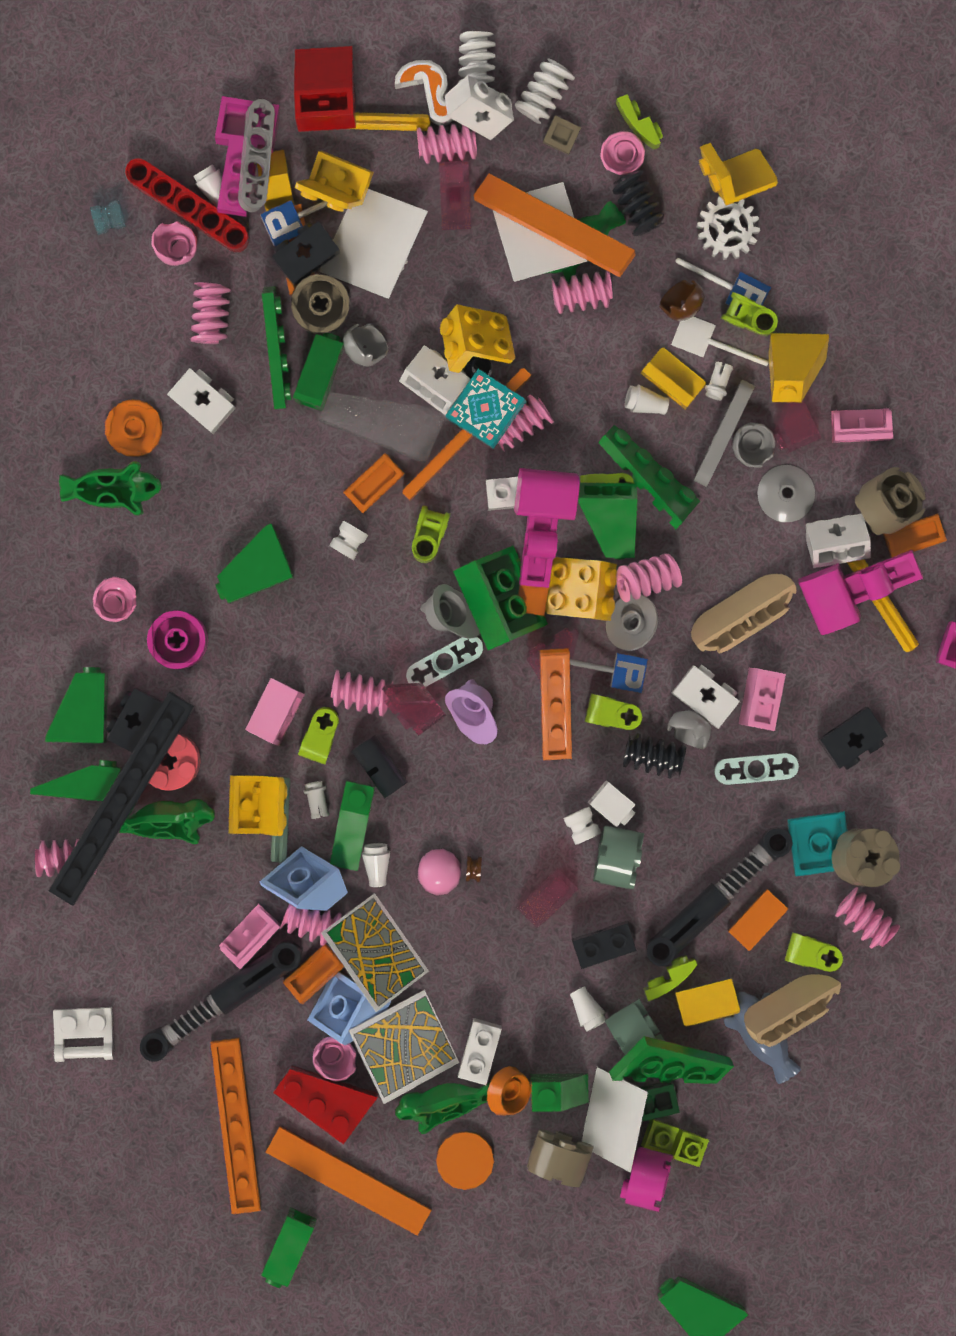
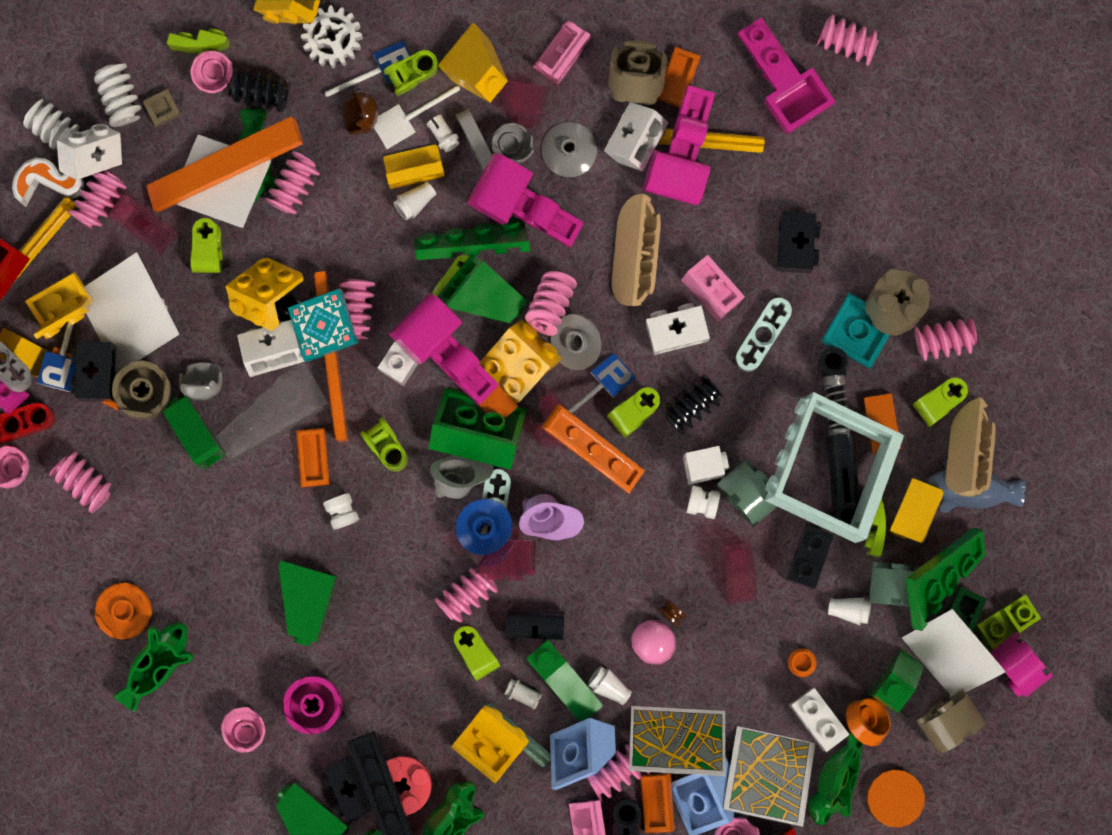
camera: 50 degrees left, 5 degrees down
(209, 415) = (160, 542): white brick -> none
(274, 712) = (429, 672): bright pink hinge -> none
(275, 336) = (139, 444): green wing -> none
(427, 652) = (474, 518): none -> blue dish
(471, 265) = (206, 252): none -> lime piece
(515, 1003) = (802, 662): none -> orange plate
(690, 728) = (693, 360): light grey hair -> none
(703, 952) = (876, 481): none -> light aqua window
(707, 470) = (504, 193): none -> dark pink plate

